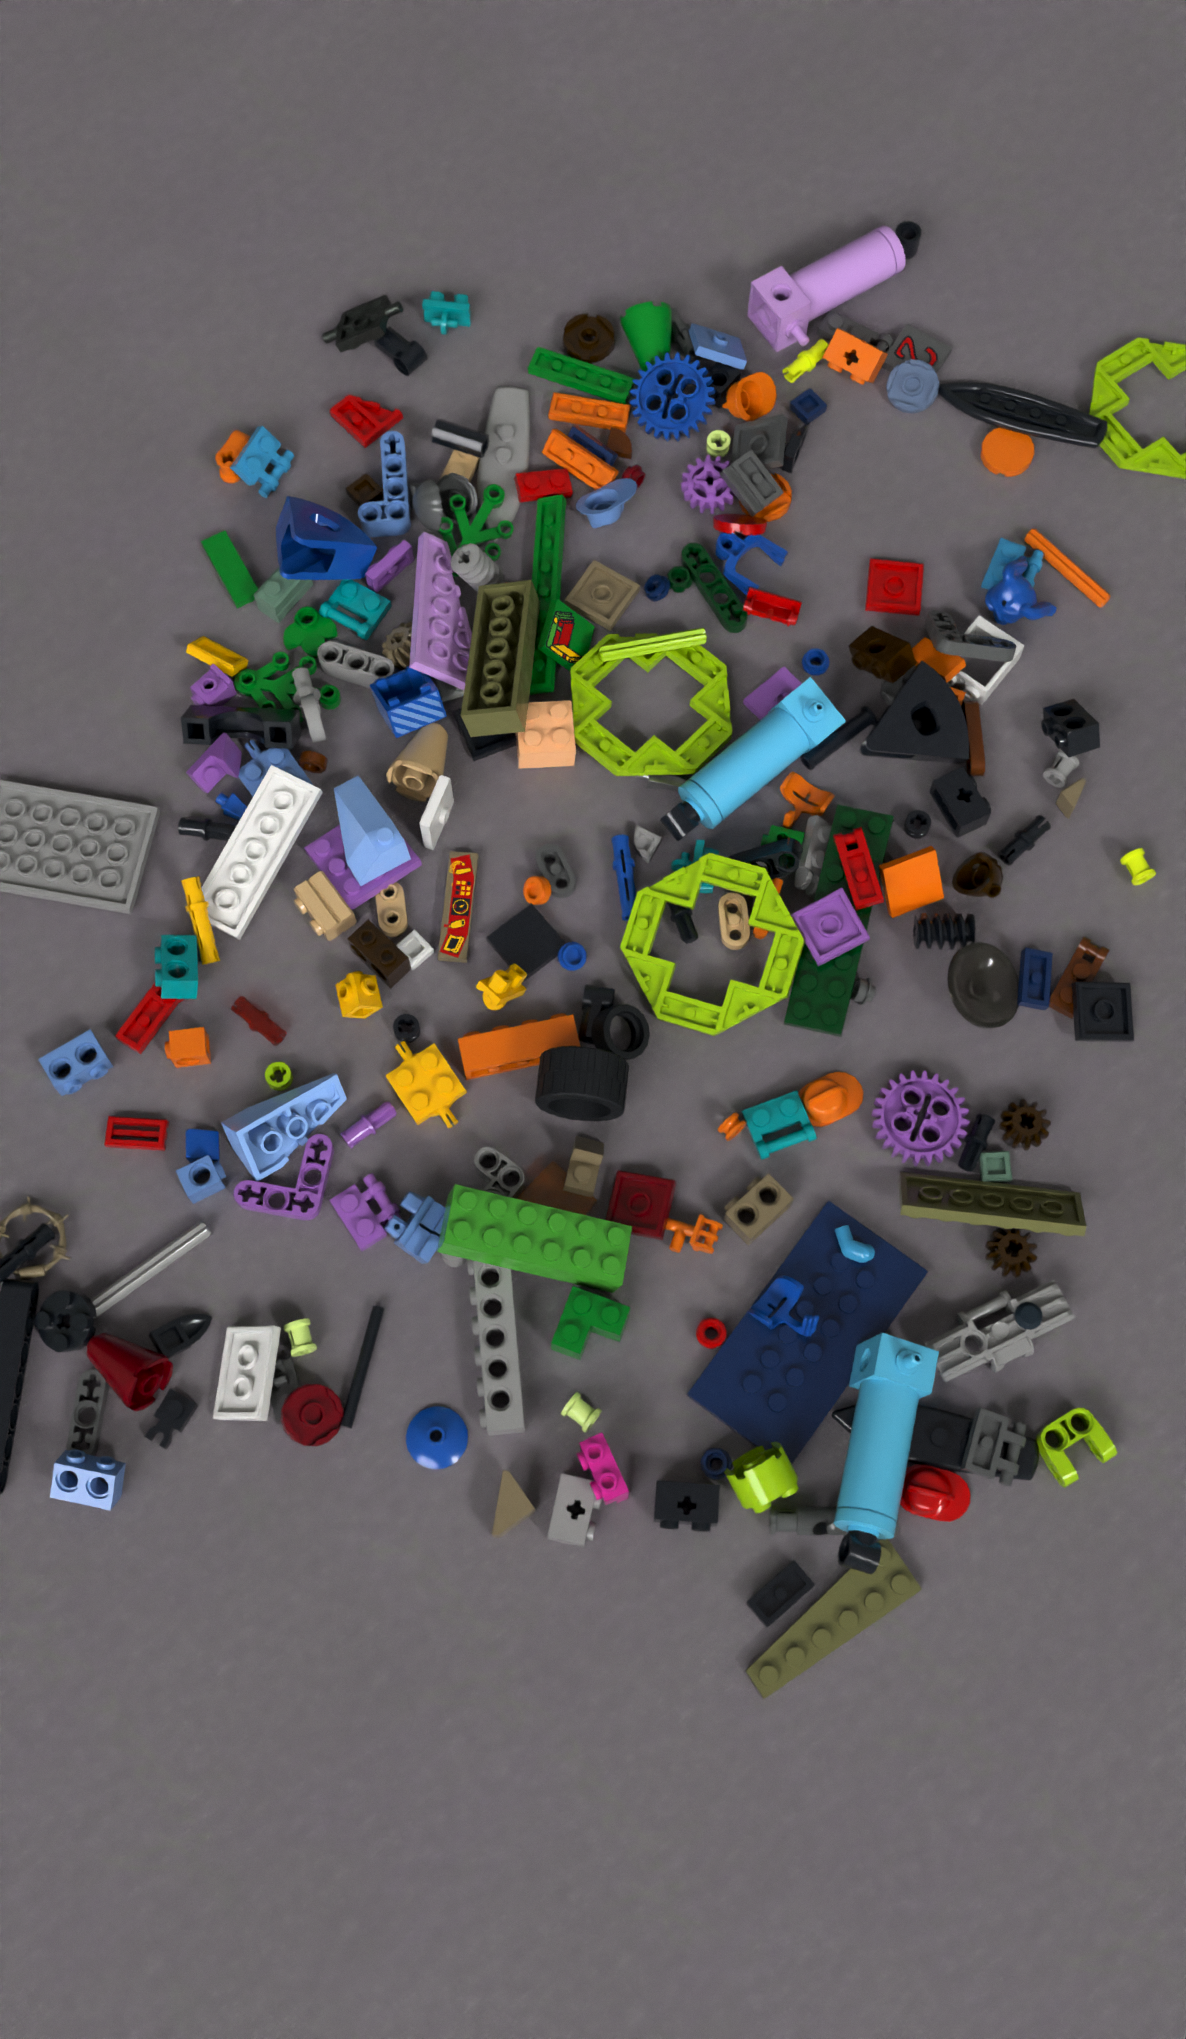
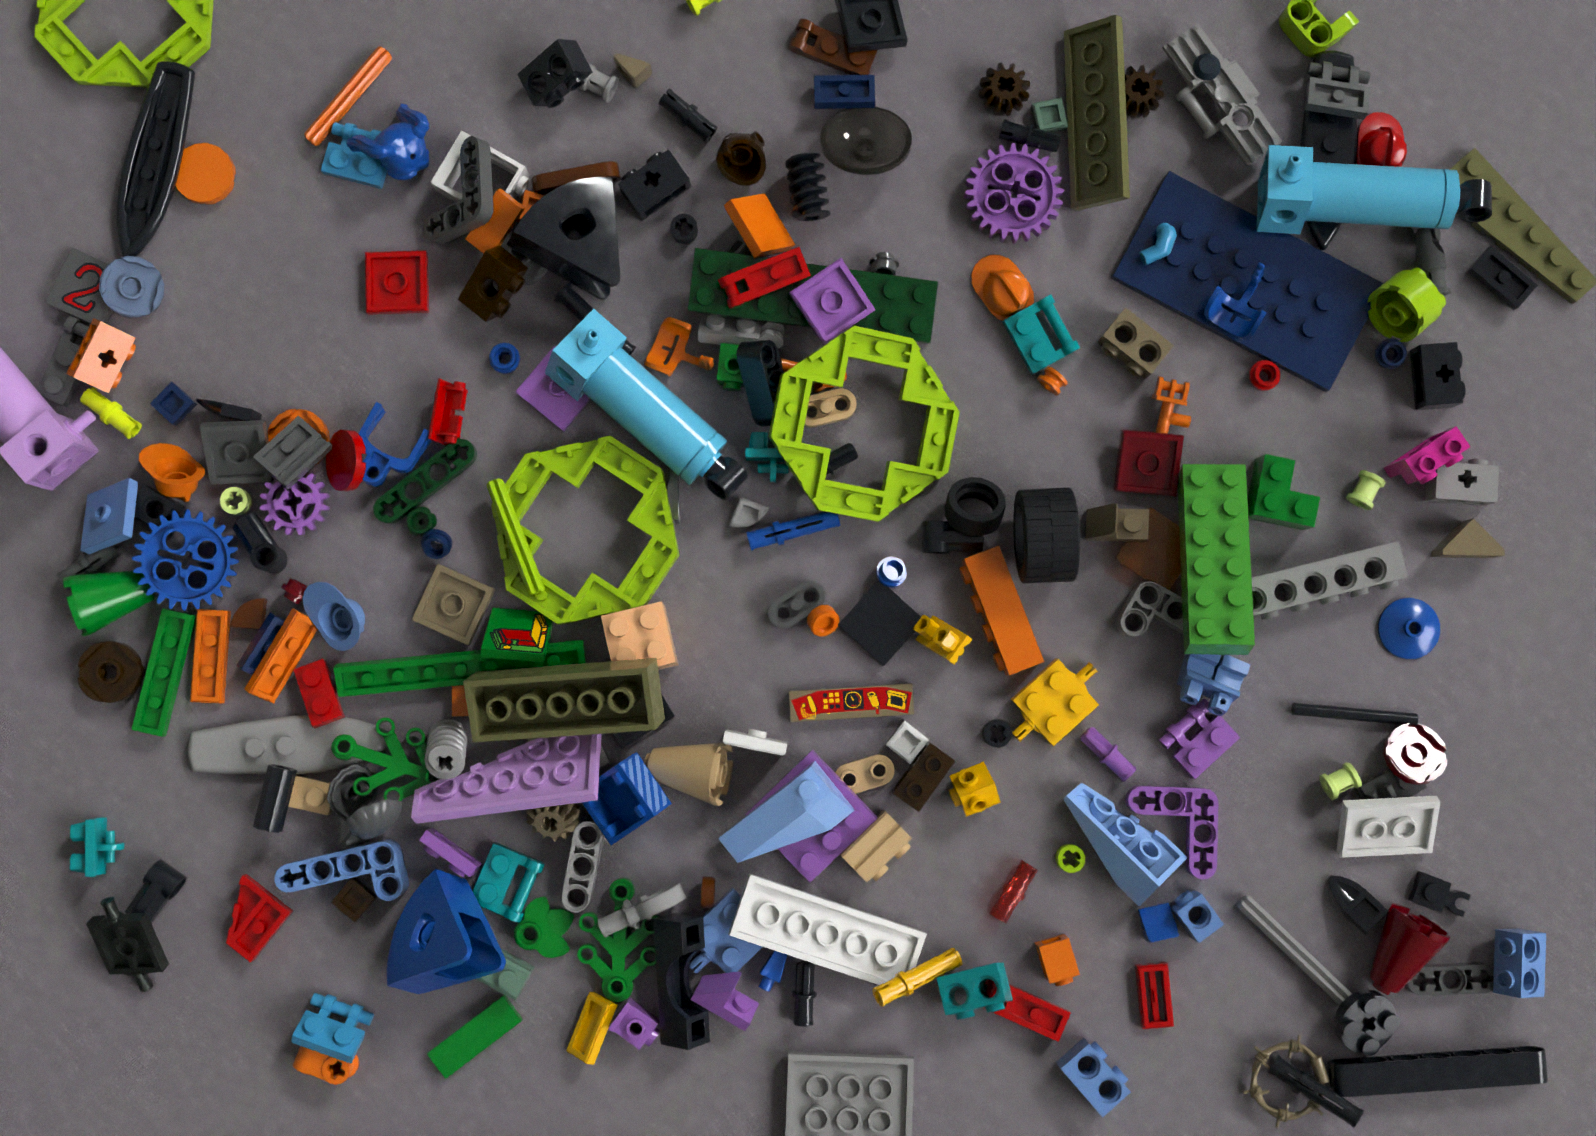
camera: 105 degrees left, 15 degrees up
(676, 456) = (259, 542): none -> black piece

